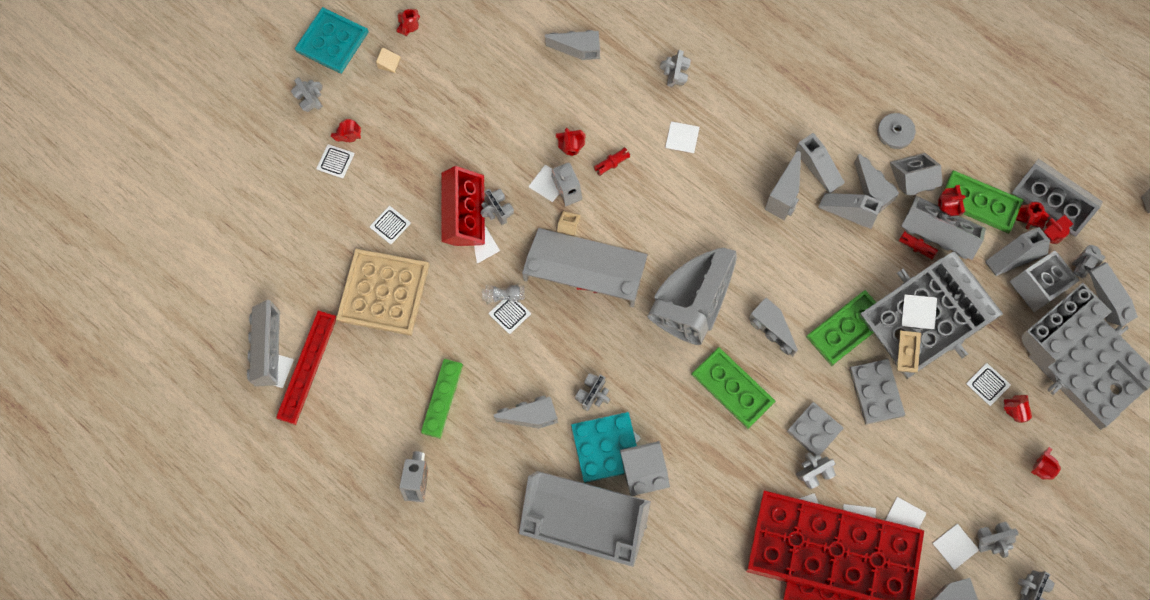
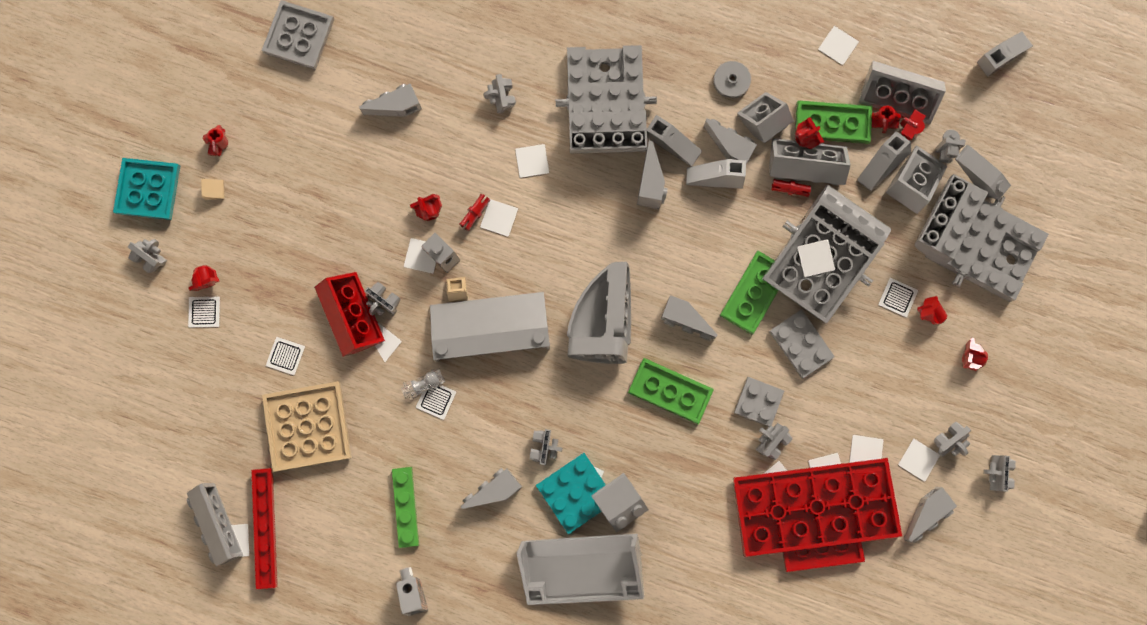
camera: 25 degrees left, 10 degrees up
(632, 175) = (499, 217): none -> white sticker
(768, 113) = (608, 105): none -> light grey piece
(908, 351) = (819, 300): tan plate -> none
(1009, 136) = (838, 45): none -> white sticker

